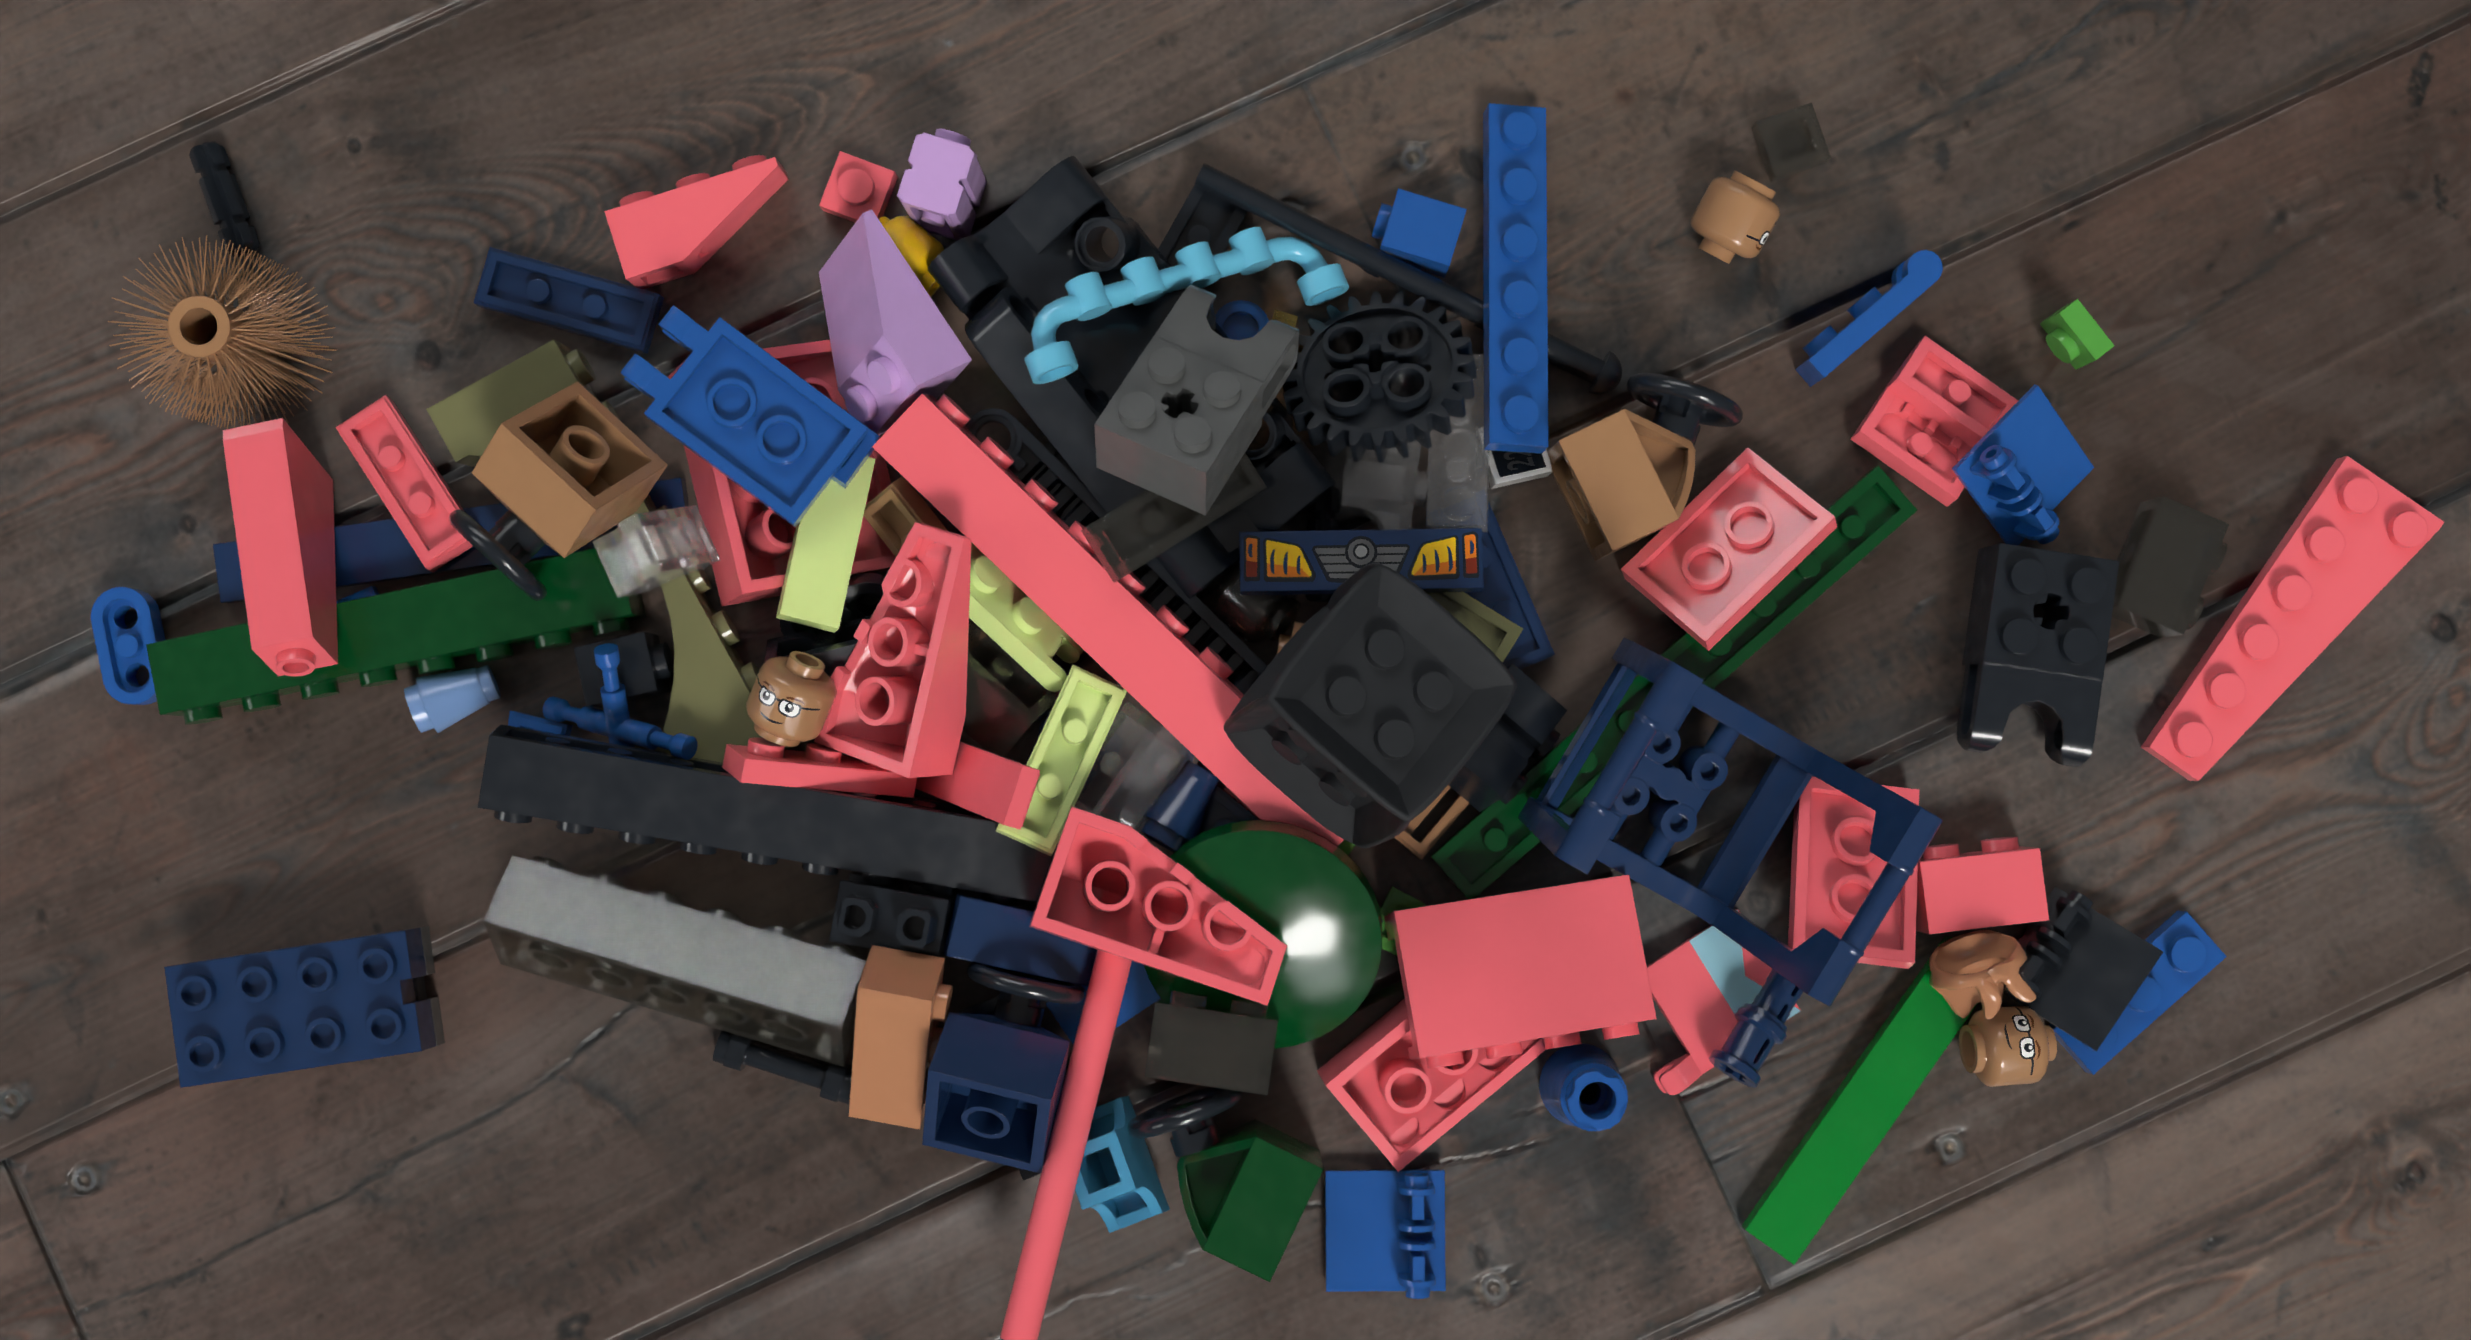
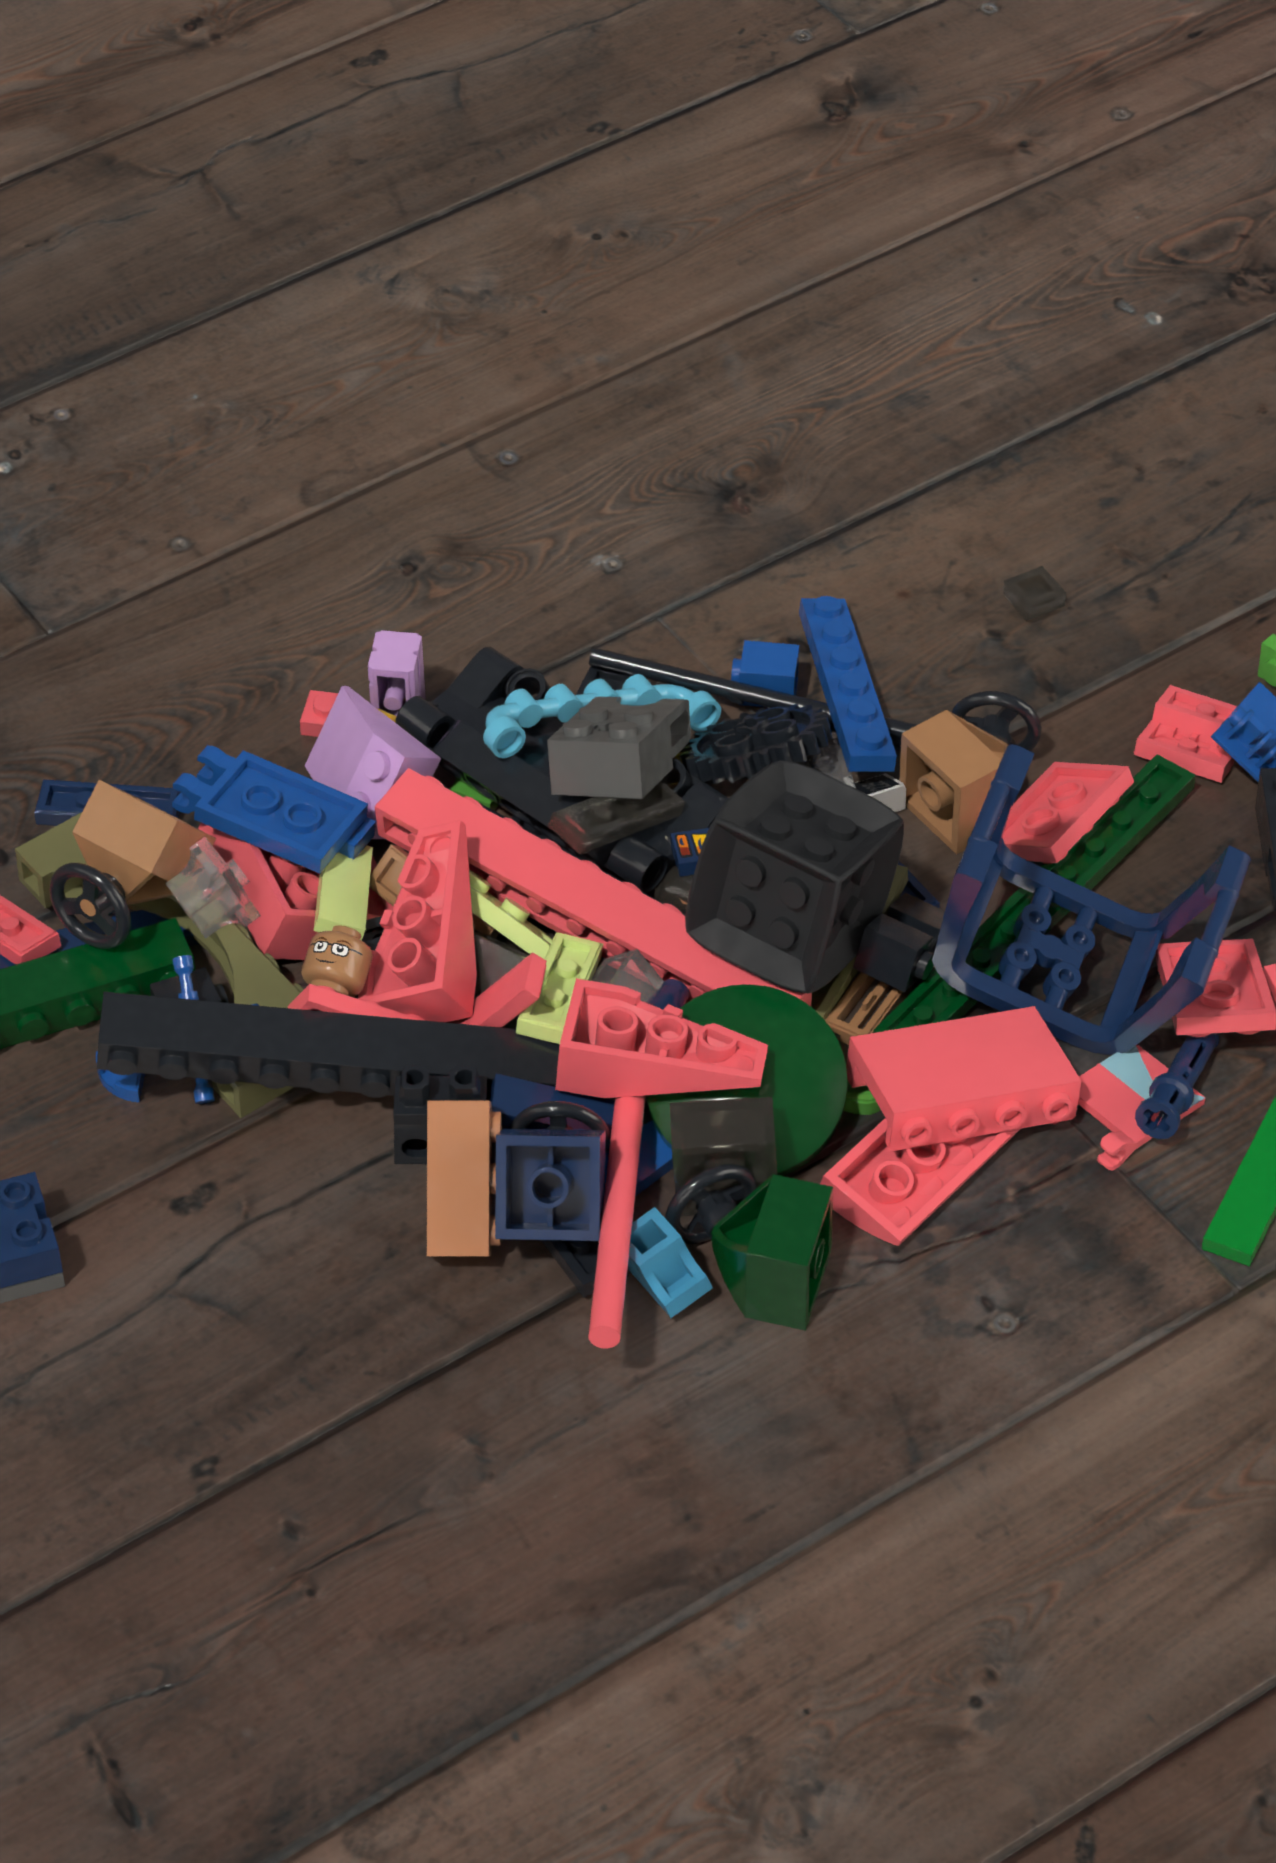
camera: 10 degrees left, 40 degrees down
(449, 697) = (45, 1047): medium blue cone -> none
(676, 958) = (268, 1161): clear smoke brick -> none
(684, 227) = (175, 743): coral slope -> none
(738, 1051) = (321, 1244): black bar -> none
(1385, 1231) = (901, 1285): blue hinge -> none
(1567, 1075) = (1041, 1152): blue plant -> none
(1735, 217) = (1004, 634): medium nougat head -> none
(1870, 315) = (1123, 677): blue plate -> none

